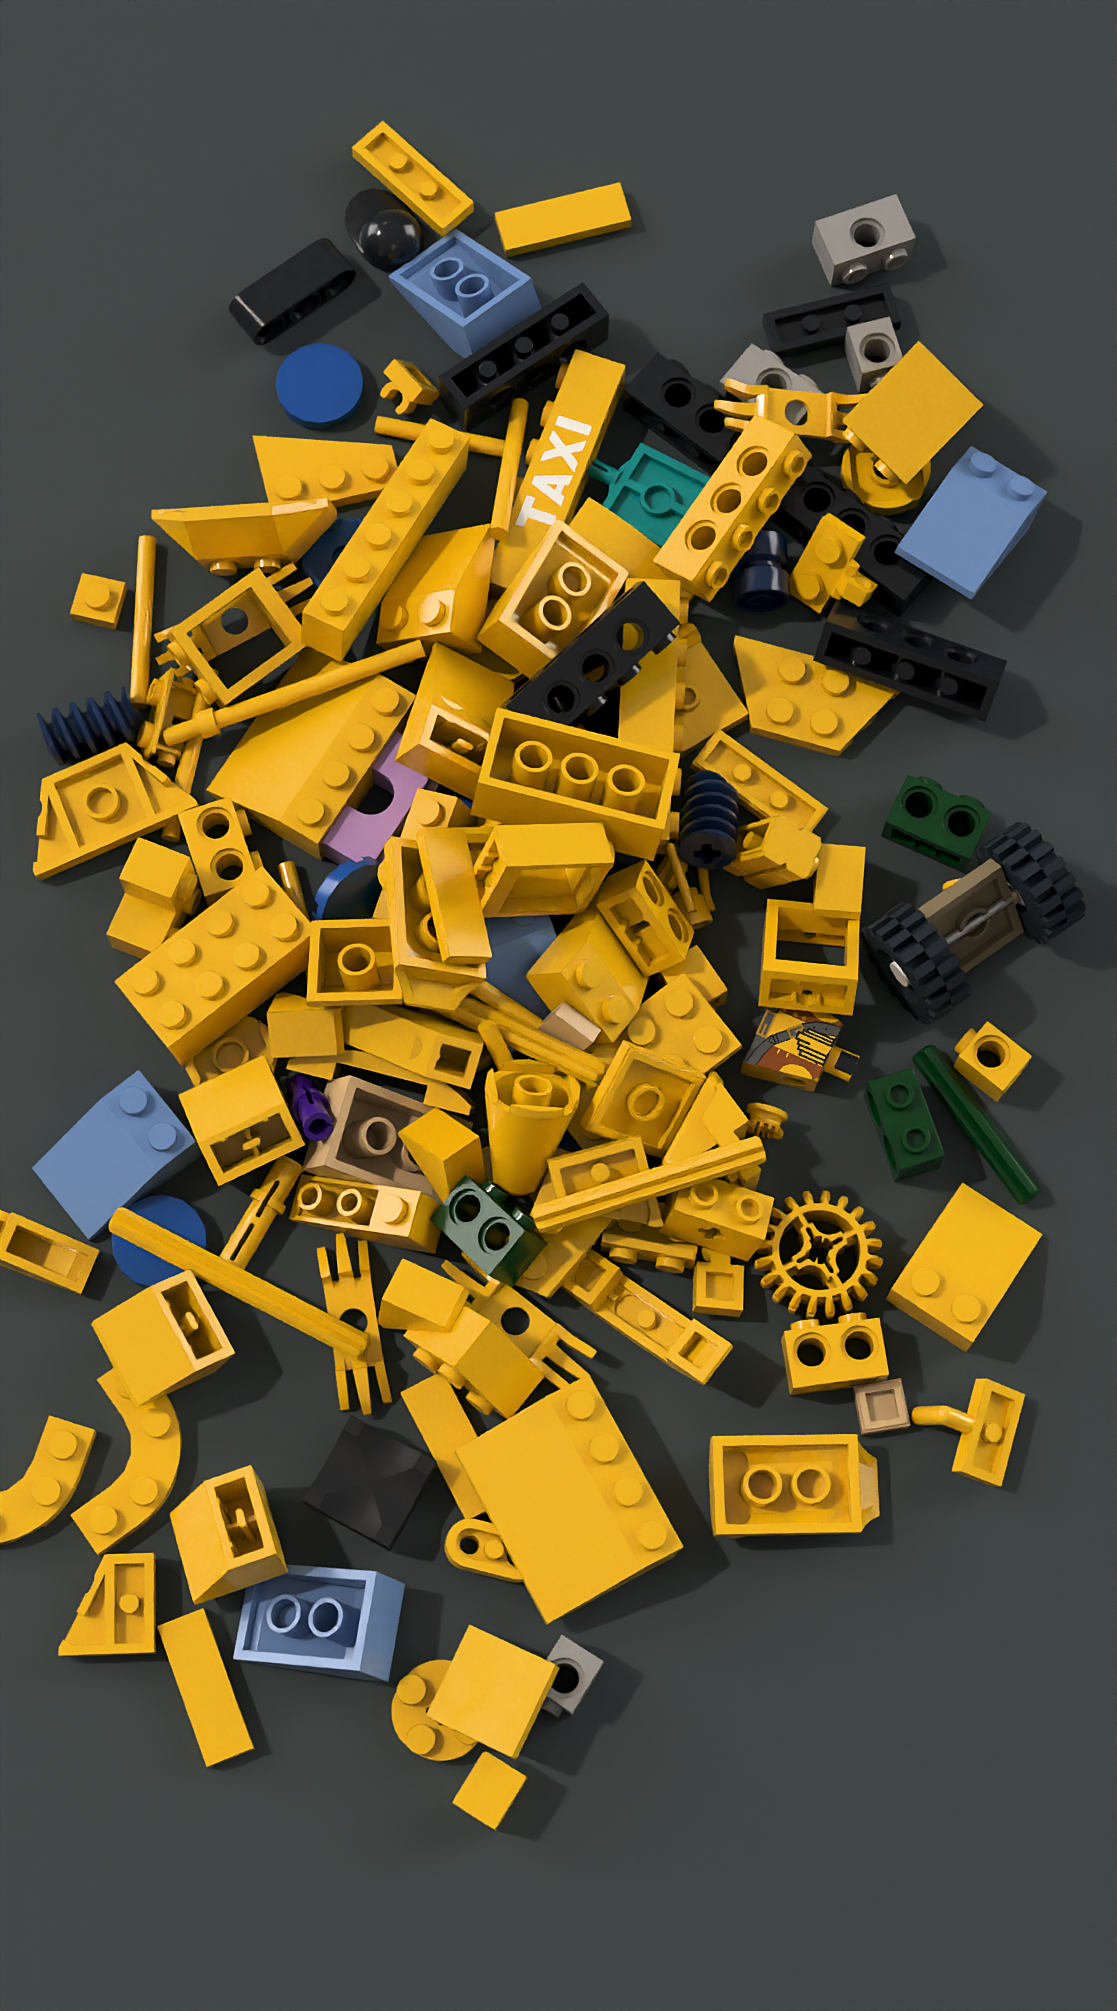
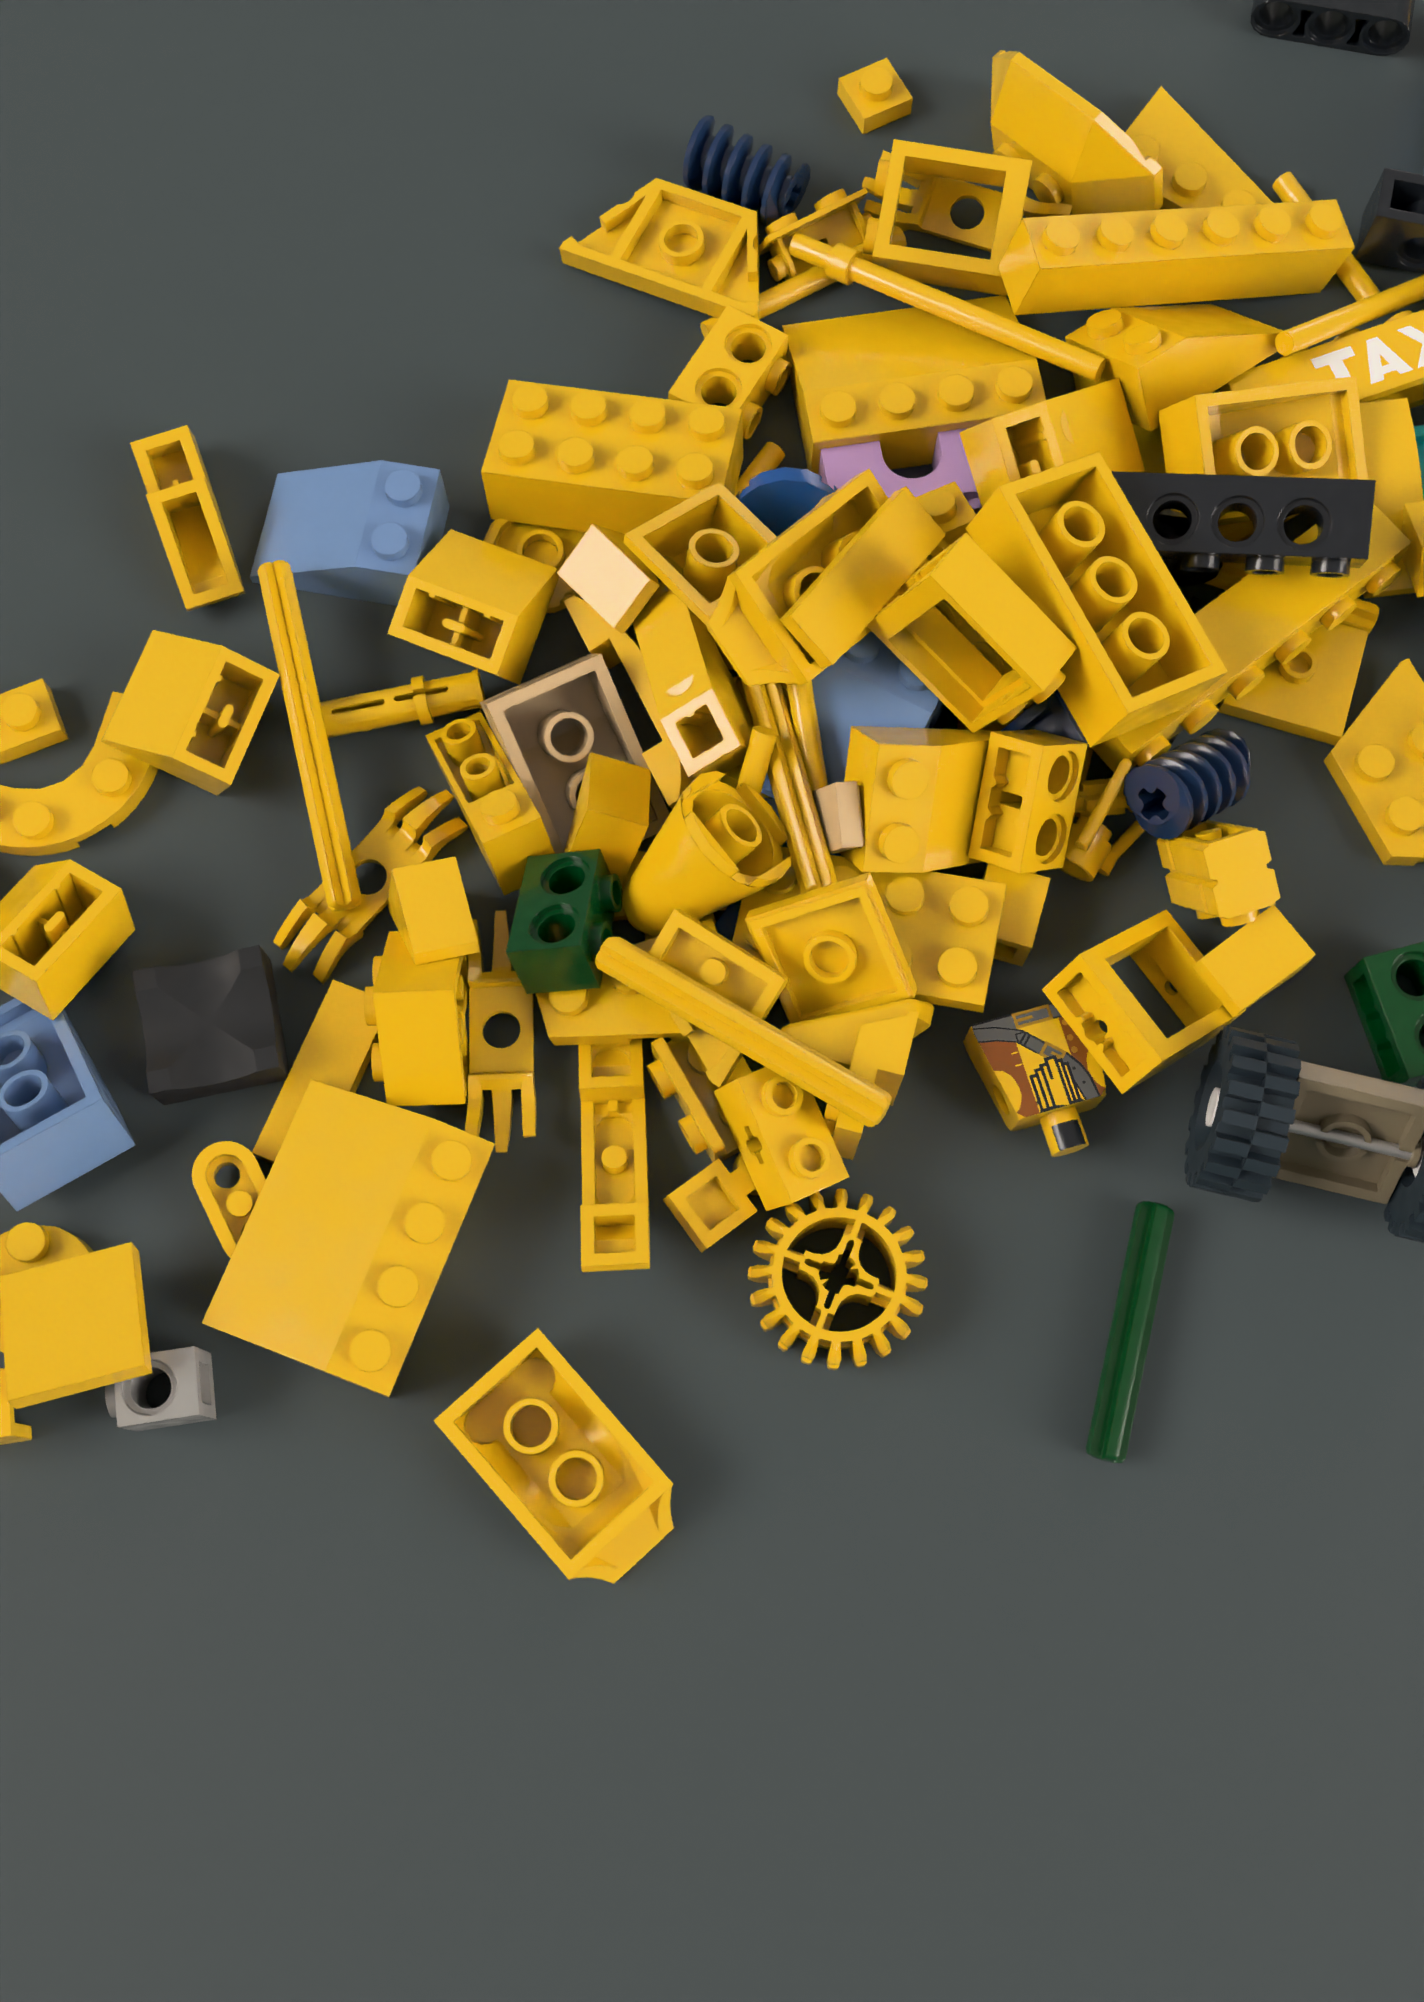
camera: 50 degrees right, 0 degrees up
(143, 621) = (911, 130): yellow bar -> none
(157, 897) = (636, 349): yellow brick -> none
(171, 1214) = (329, 631): blue tile -> none
(309, 1107) = (541, 653): dark purple pin -> none
(319, 386) = (1267, 104): blue tile -> none
(411, 383) = (1348, 170): yellow tile -> none
(758, 785) = (1280, 804): yellow tile -> none
(766, 1120) = (933, 1105): yellow bush -> none
(837, 1368) = (730, 1399): yellow brick -> none
(881, 1406) = (733, 1485): tan tile -> none
(904, 1124) = (1058, 1251): dark green brick -> none
(963, 1267) = (964, 1447): yellow slope -> none
(985, 1429) = (801, 1623): yellow plate -> none
(990, 1080) = (1197, 1311): yellow brick -> none

